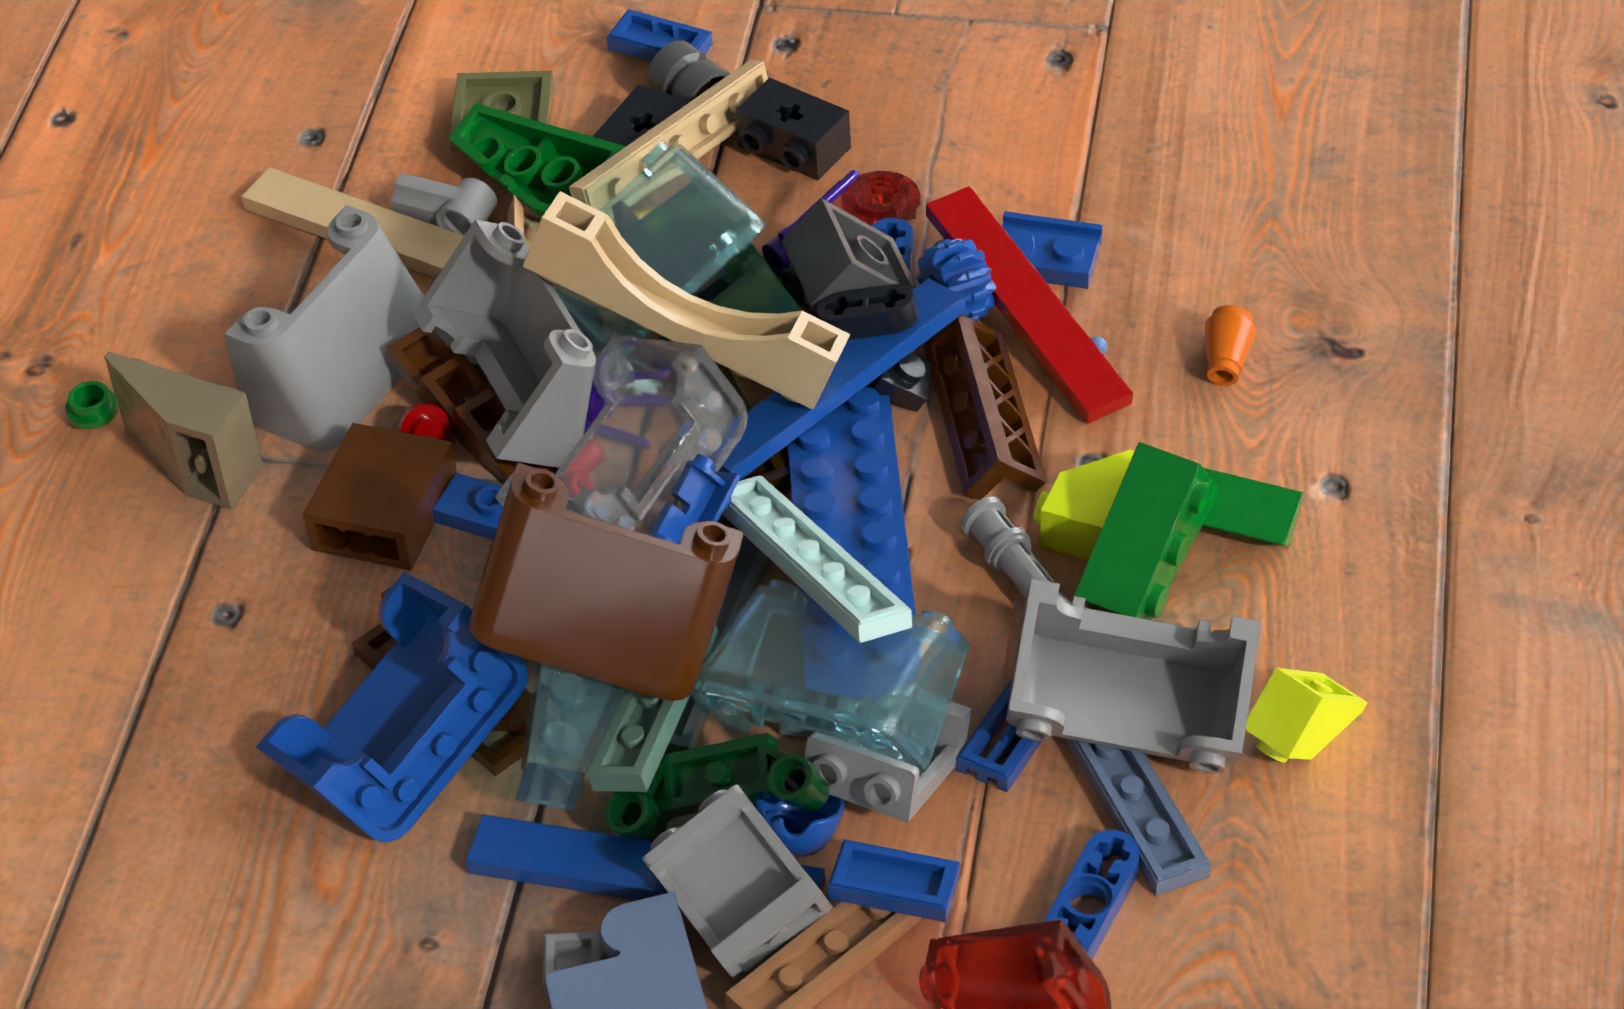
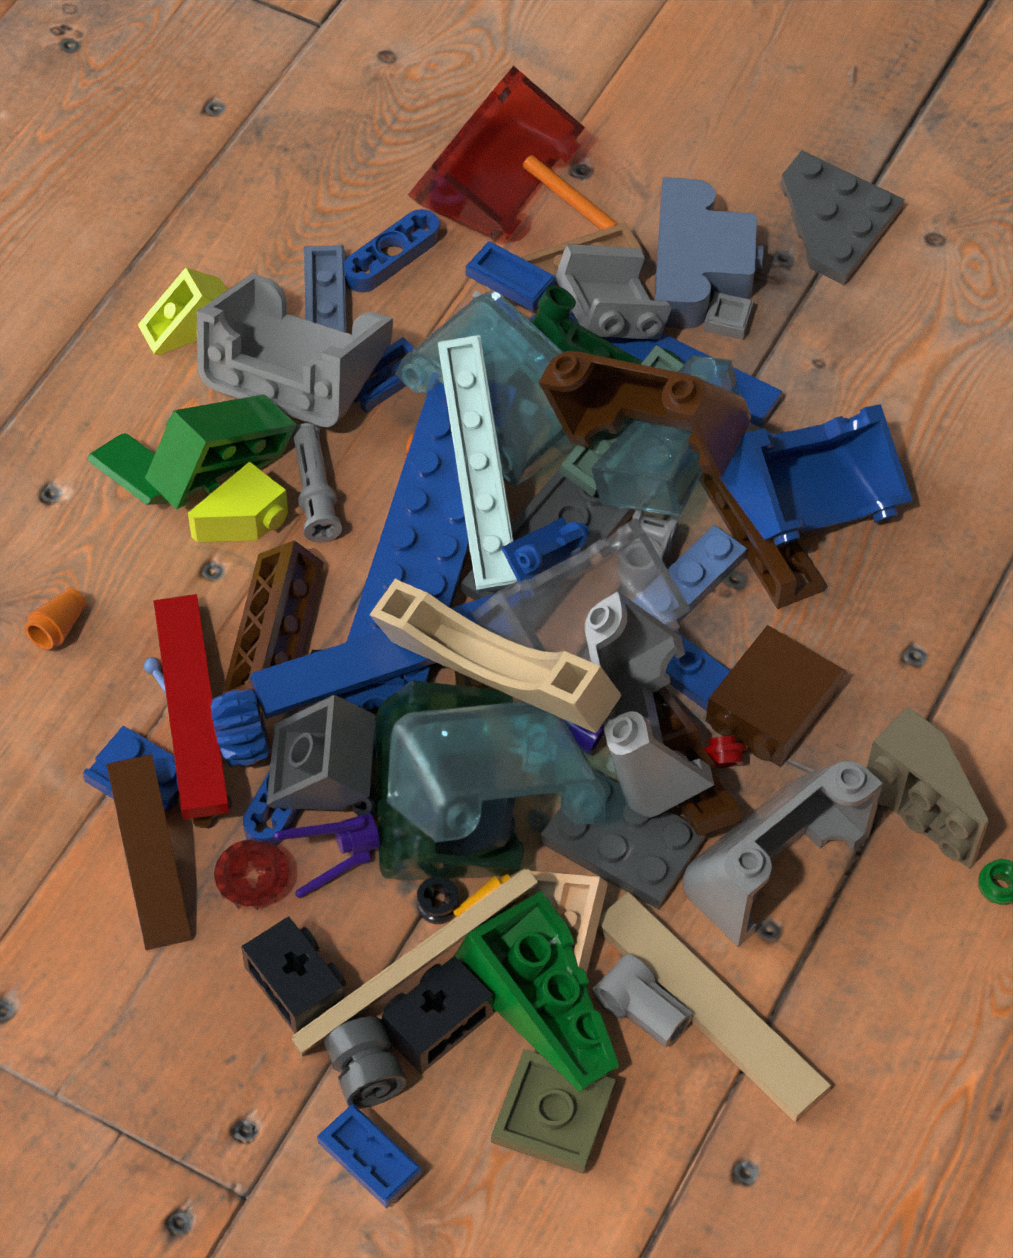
camera: 165 degrees left, 10 degrees up
(870, 310) = (336, 673): black beam -> none
(995, 174) = (149, 852): none -> reddish brown slope

